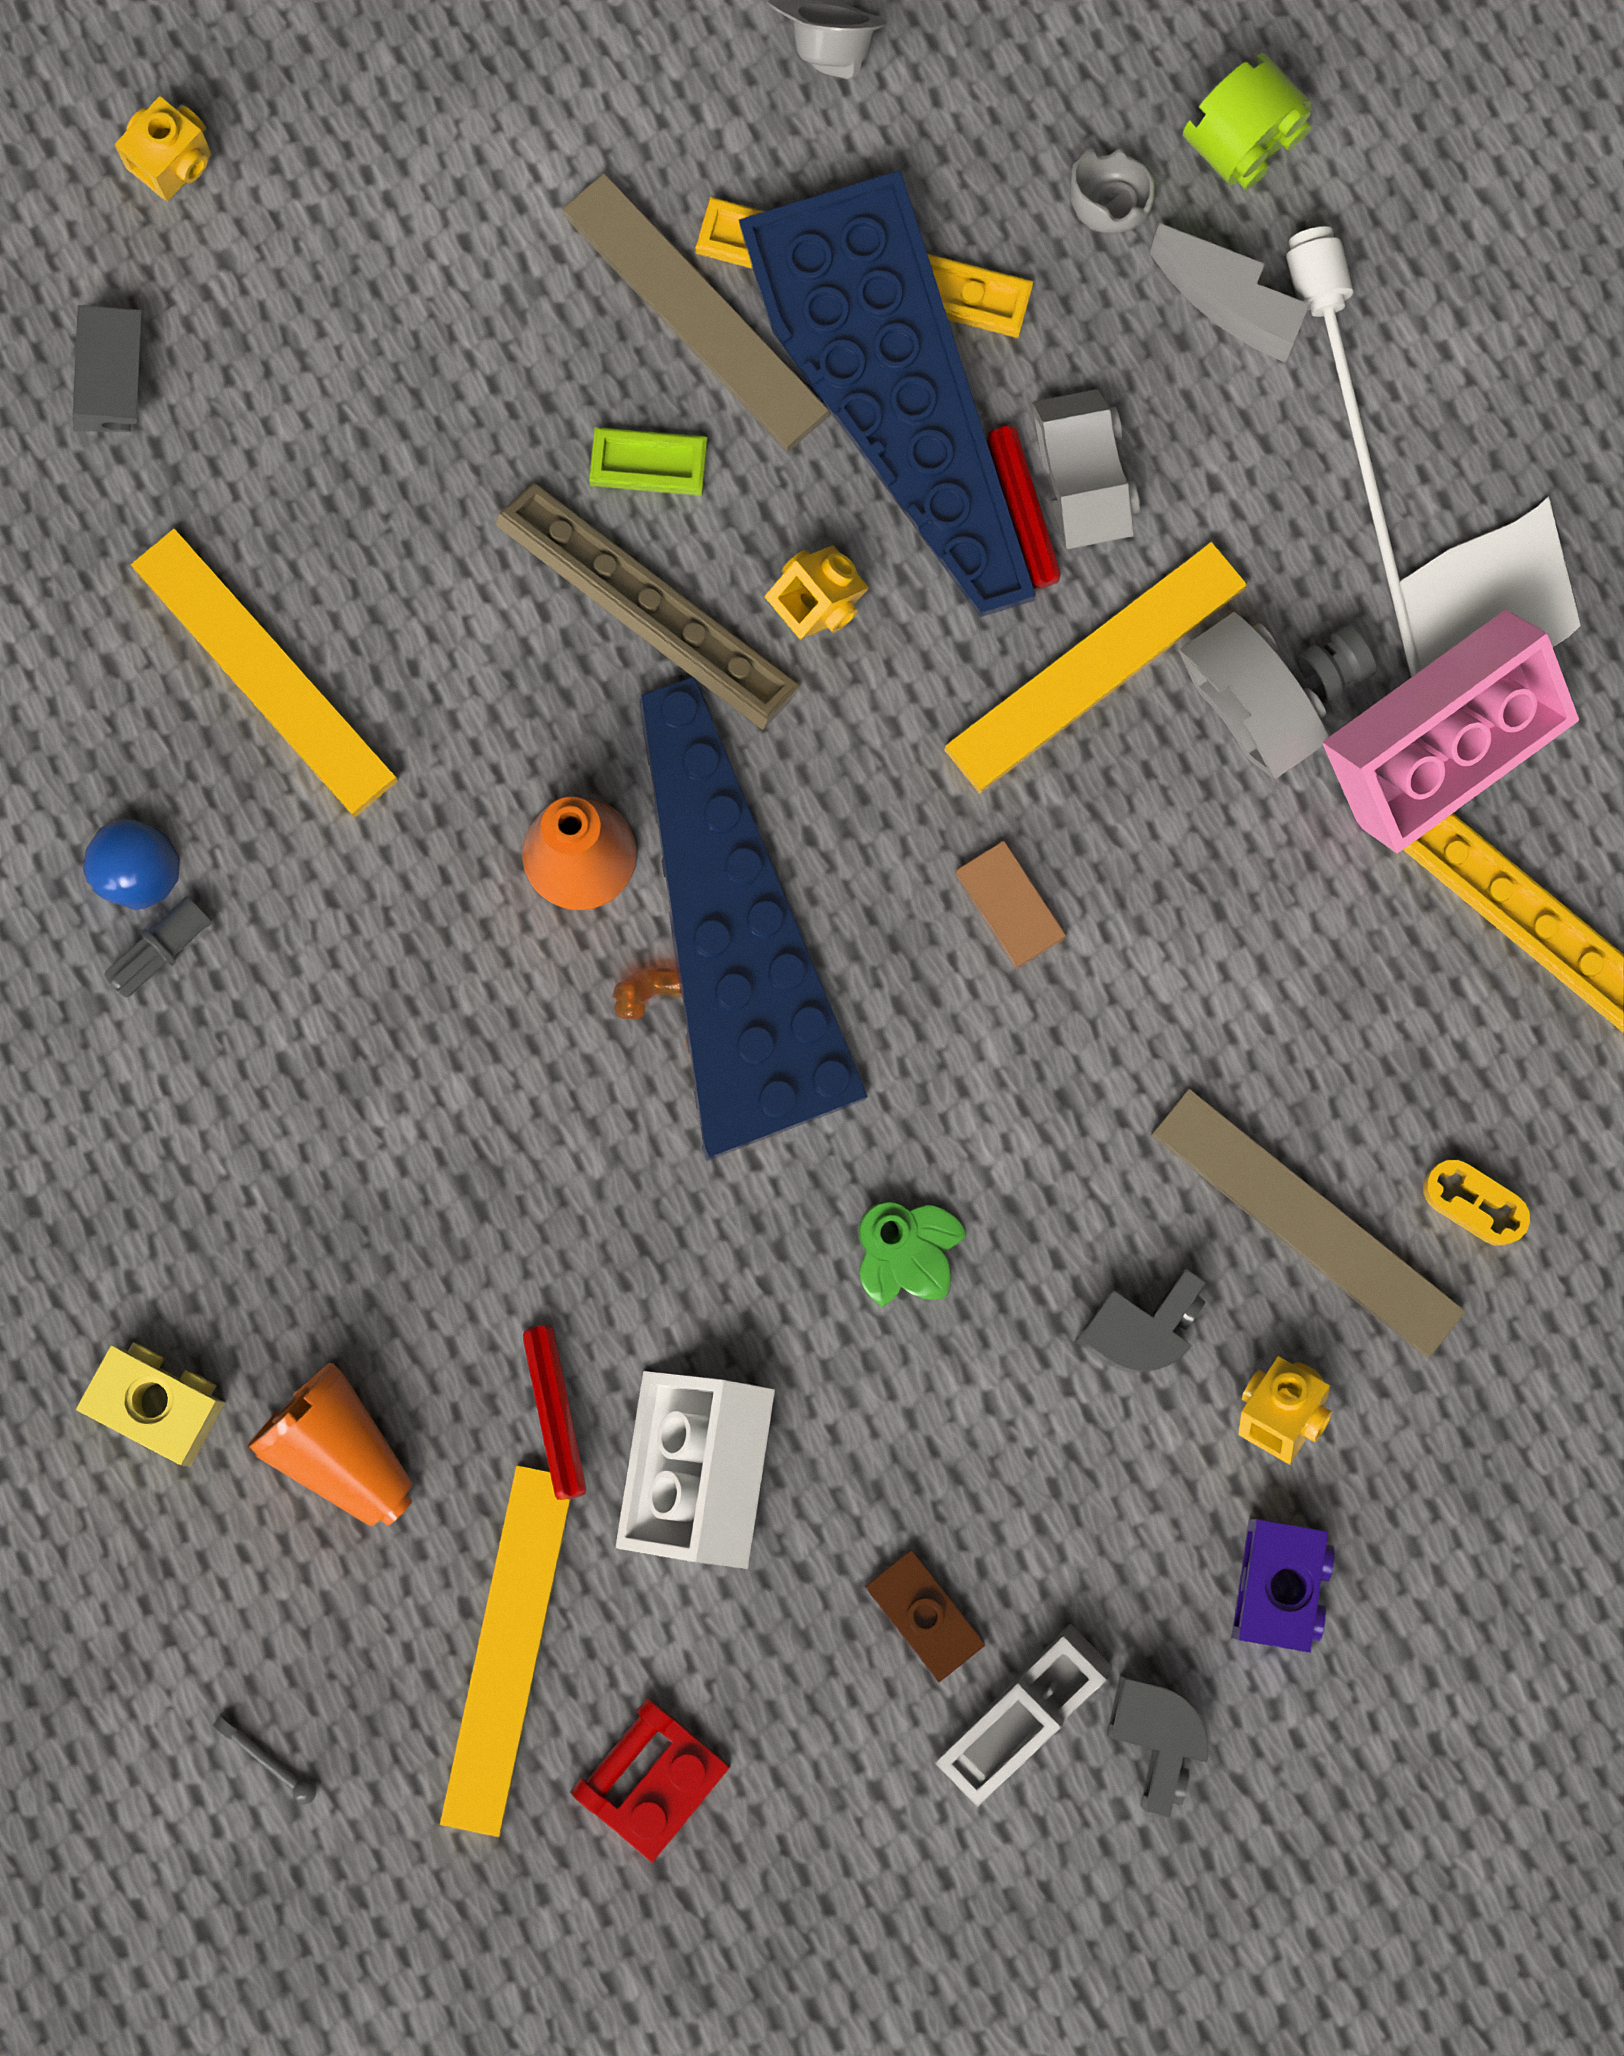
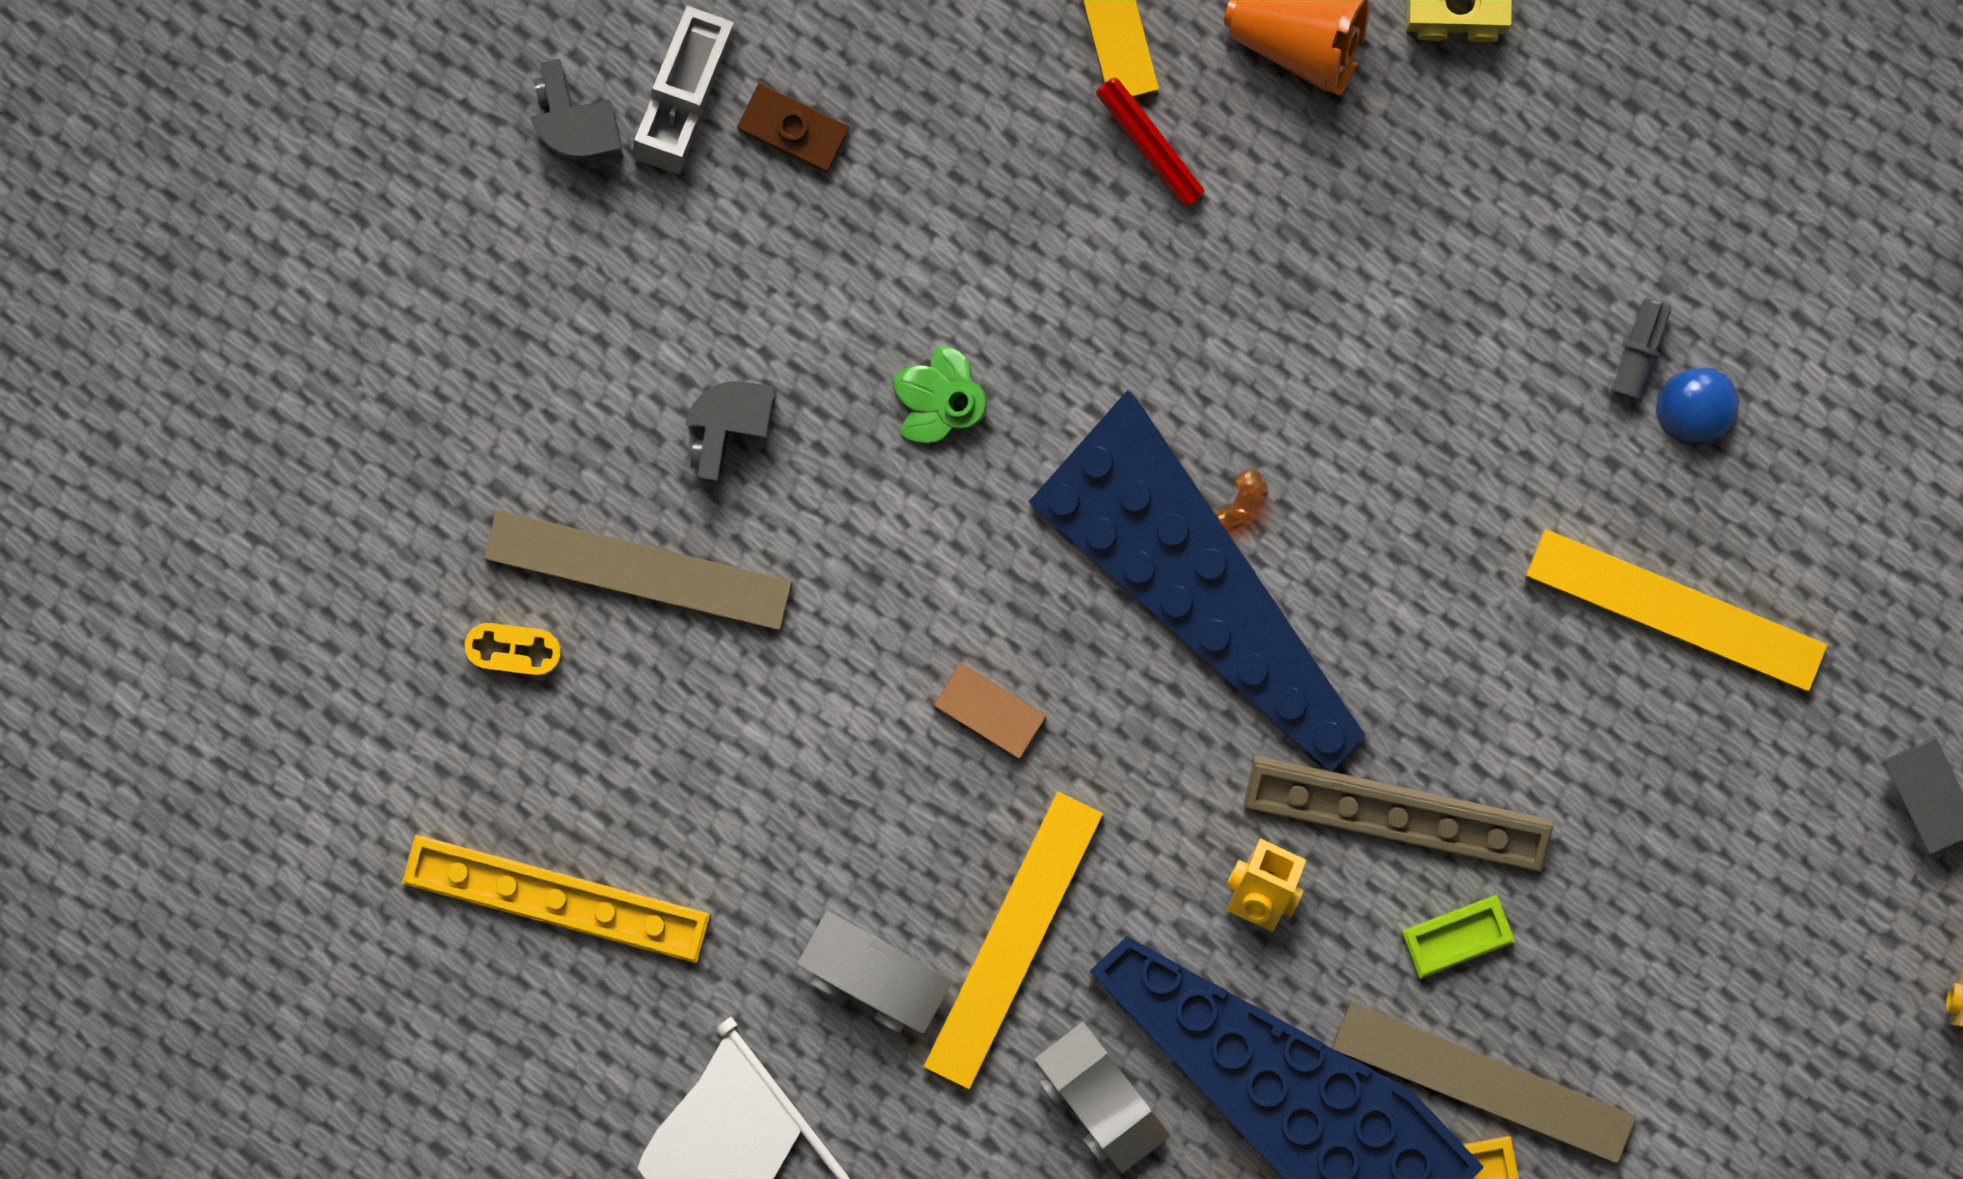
camera: 155 degrees right, 5 degrees up
(579, 853) = (1335, 601): orange cone -> none
(695, 1469) = (1020, 150): white slope -> none
(1023, 506) = (1135, 1046): red axle -> none
(1257, 1613) = (525, 248): dark purple brick -> none
(1285, 1408) = (586, 396): yellow brick -> none
(1337, 662) = (820, 1033): dark grey wheel -> none
(1451, 730) = (703, 1013): bright pink brick -> none

